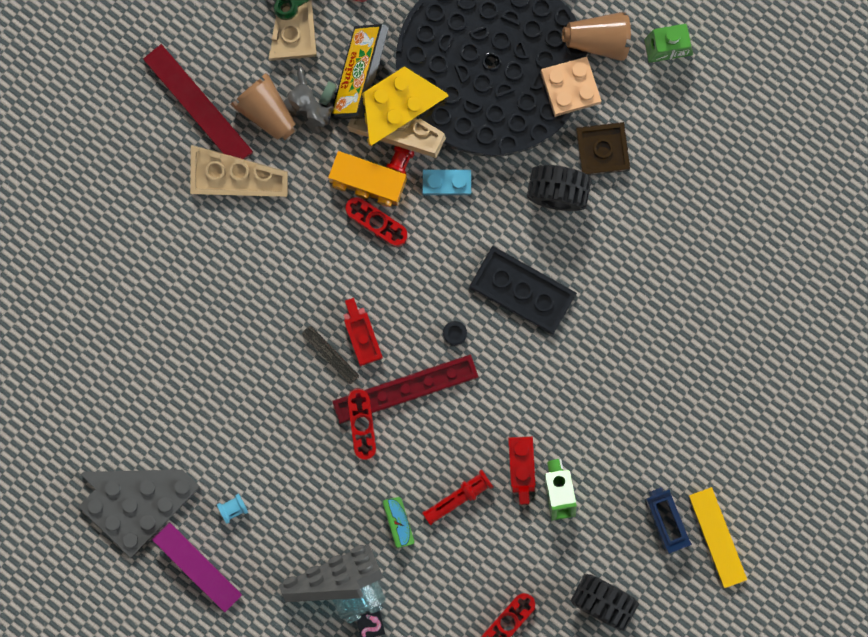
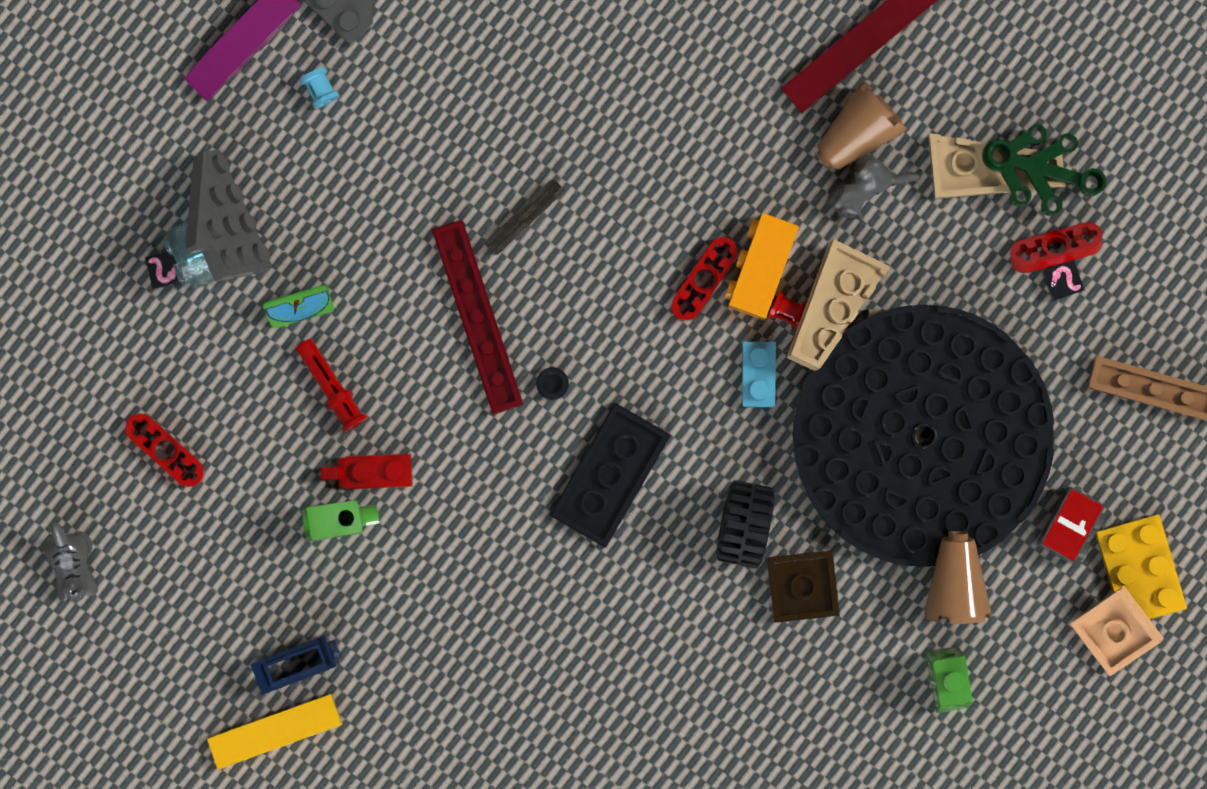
camera: 85 degrees right, 5 degrees up
(227, 175) = (767, 82): tan wing -> none
(327, 93) = (881, 213): sand green tile -> none
(352, 406) = (406, 252): red beam -> none
(359, 70) = (909, 255): tile -> none
(361, 334) = (551, 258): red hinge -> none
(397, 101) = (862, 304): yellow wing -> none
(570, 86) = (887, 542): light nougat plate -> none
(604, 602) = (186, 577): black tyre -> none

